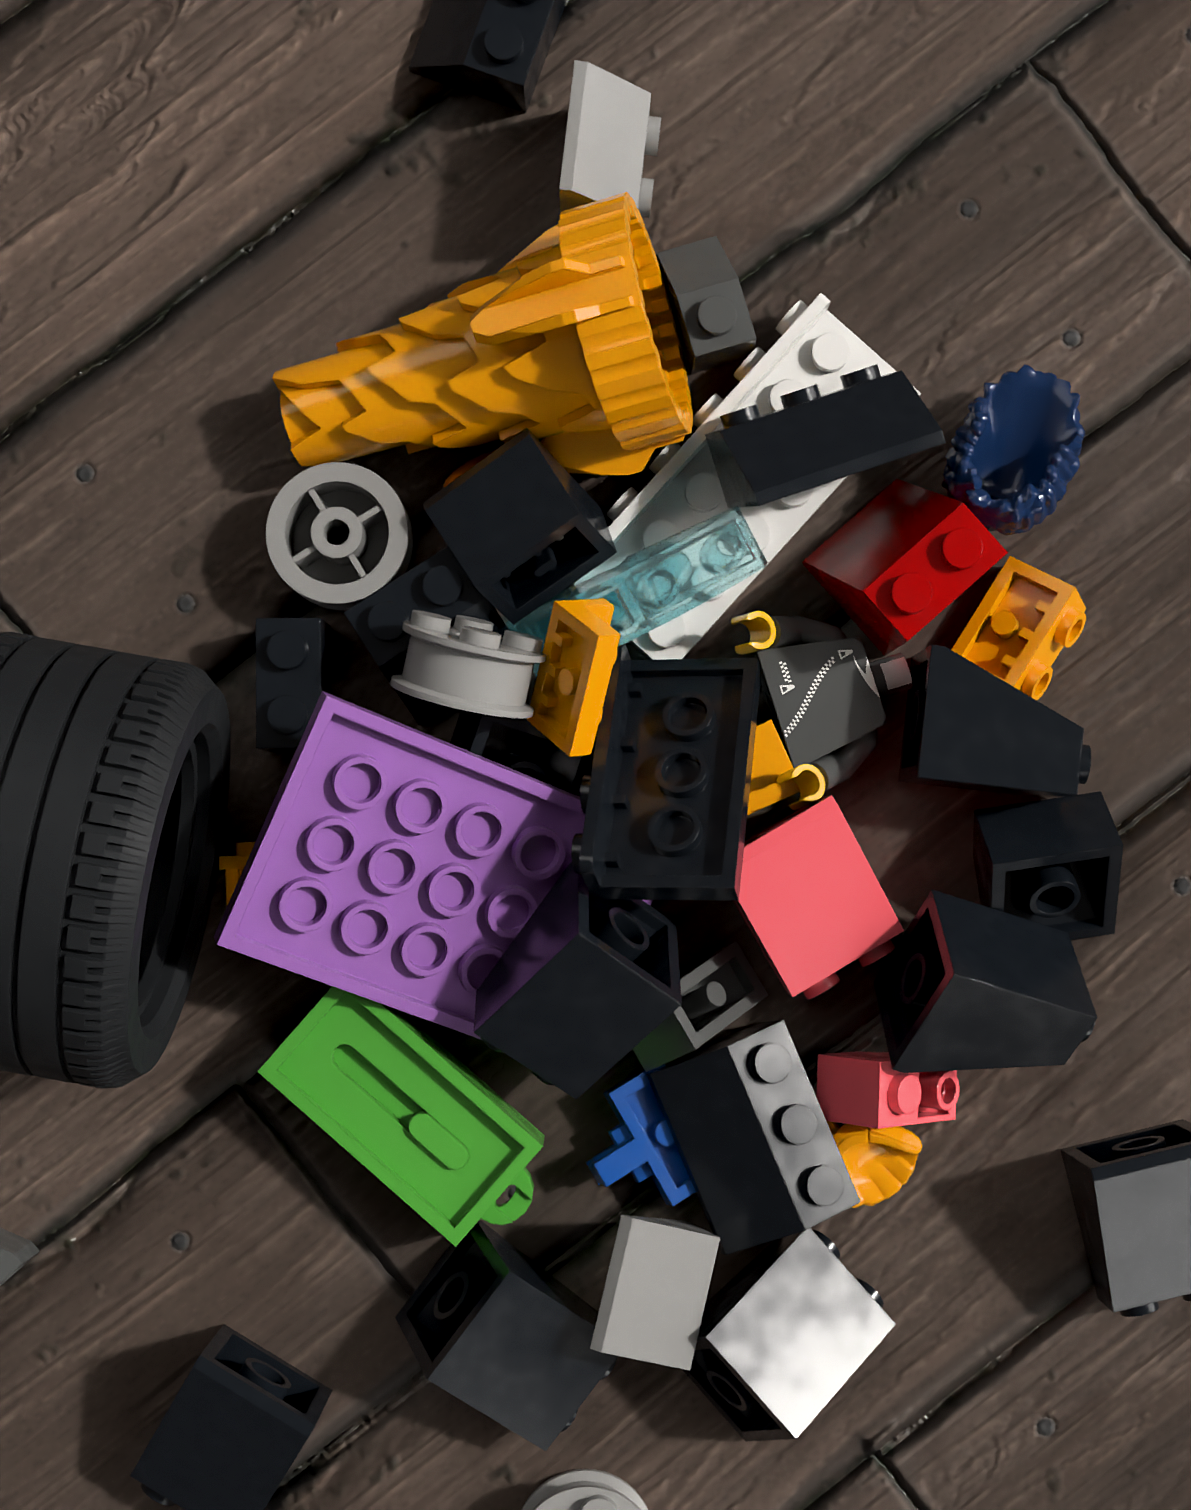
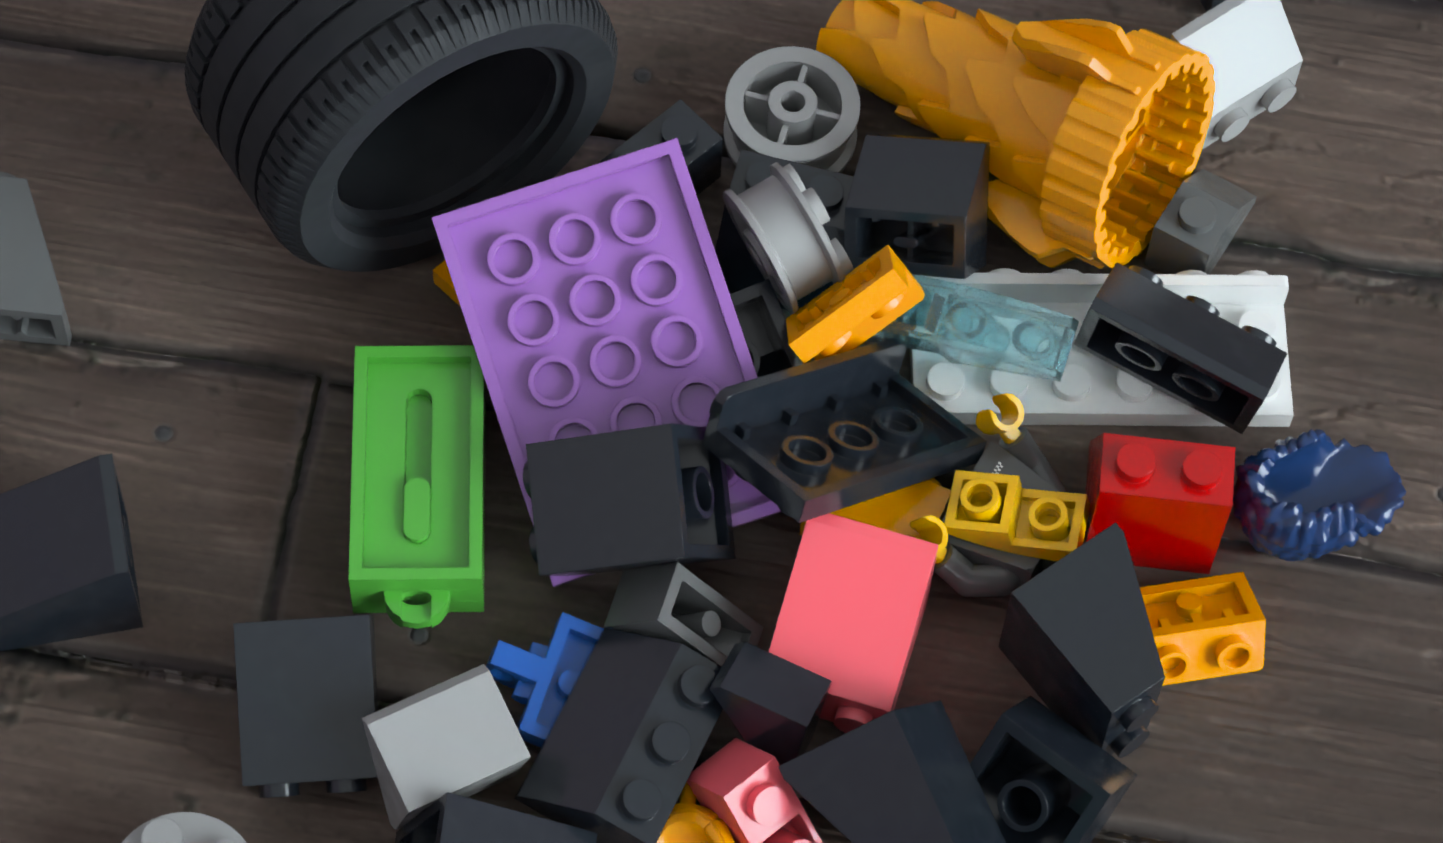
camera: 45 degrees right, 25 degrees down
(825, 1017) = (770, 700): none -> black slope
(841, 697) = (1016, 520): none -> yellow slope

